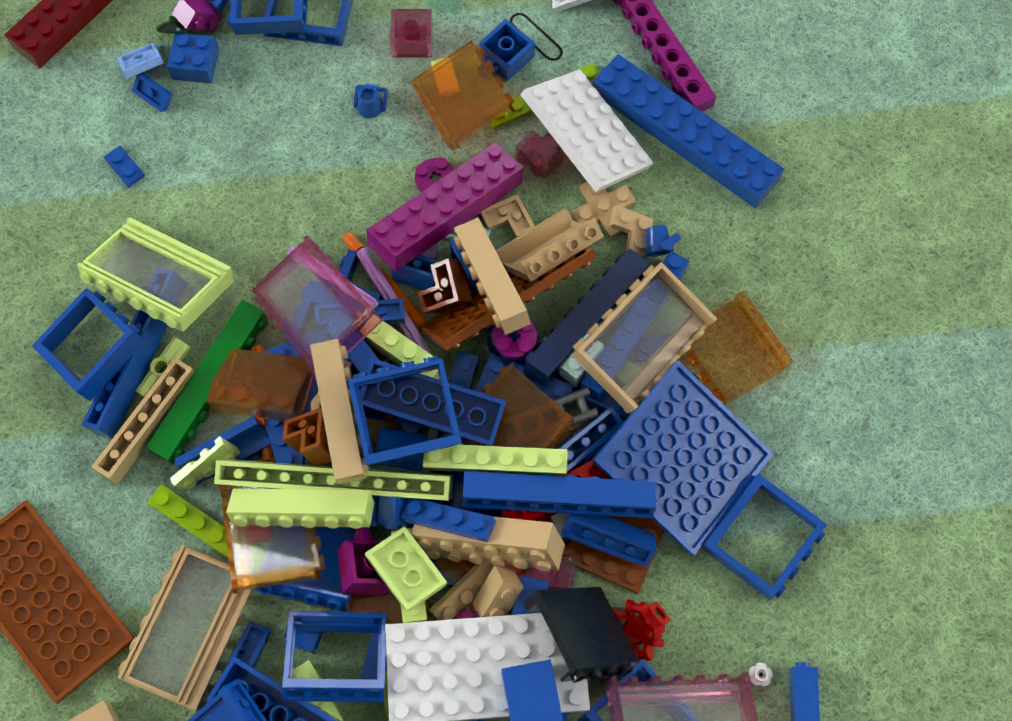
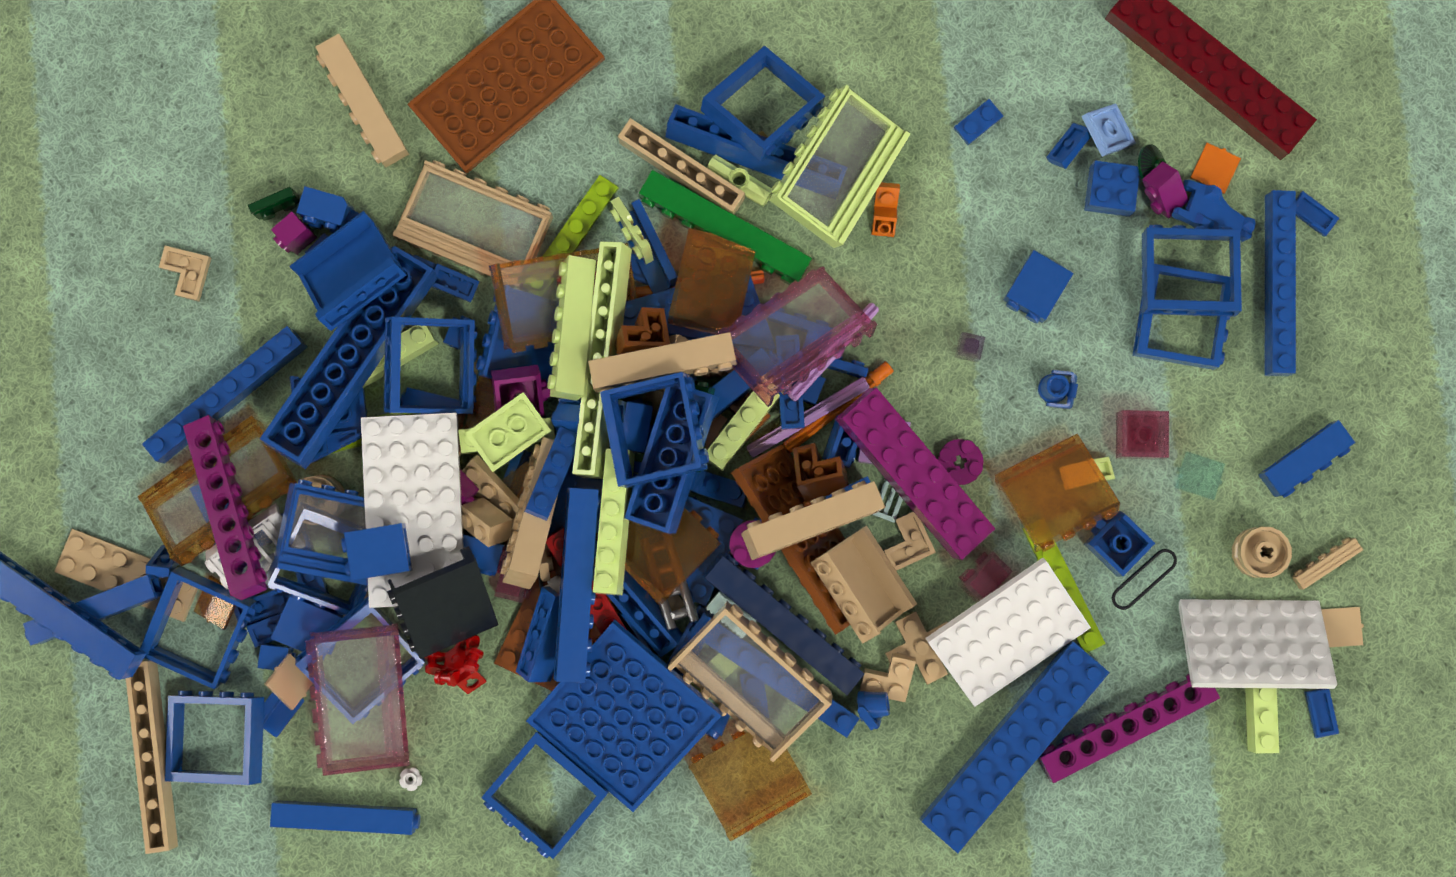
camera: 90 degrees right, 15 degrees up
(206, 241) = (885, 209): none -> orange slope
(278, 115) = (1037, 287): none -> blue brick
(331, 168) = (970, 347): none -> brick

